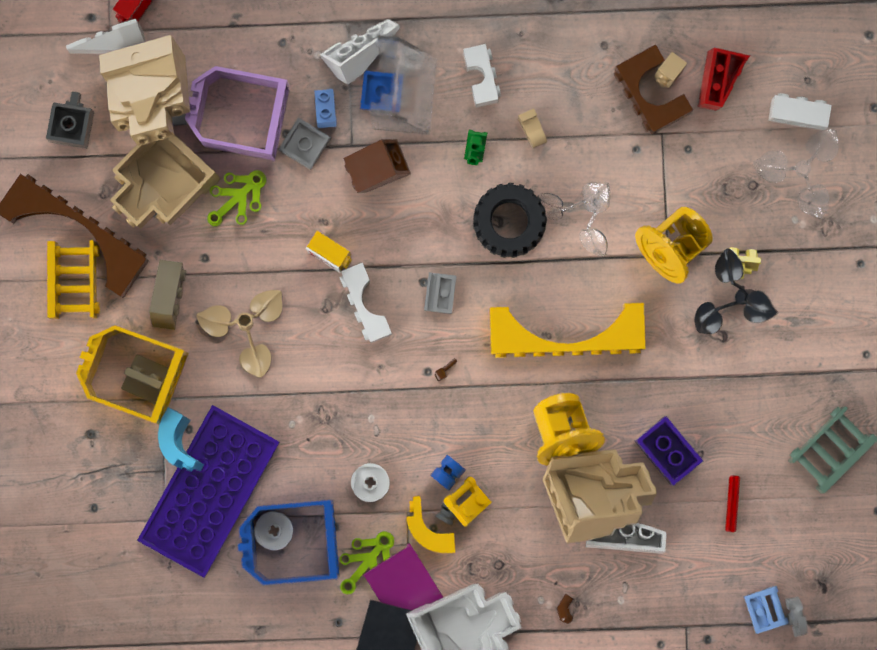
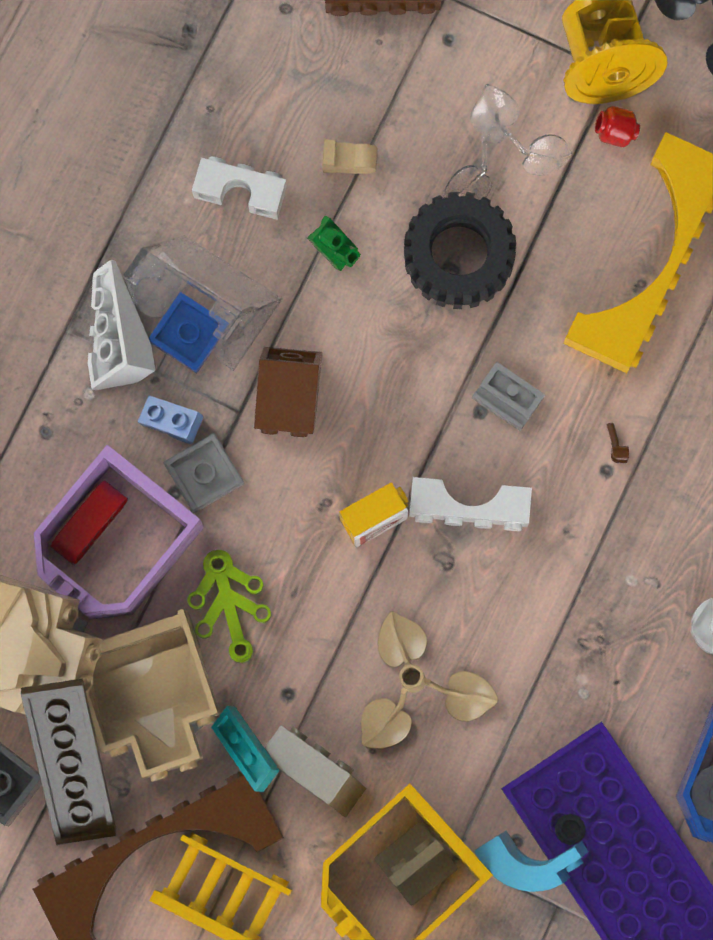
camera: 60 degrees left, 5 degrees down
(97, 154) = (68, 761): none -> plate
(158, 249) = (245, 749): none -> teal plate
(208, 454) = (570, 829): none -> black plate
(242, 94) = (89, 522): none -> red beam
(633, 273) = (617, 126): none -> red head

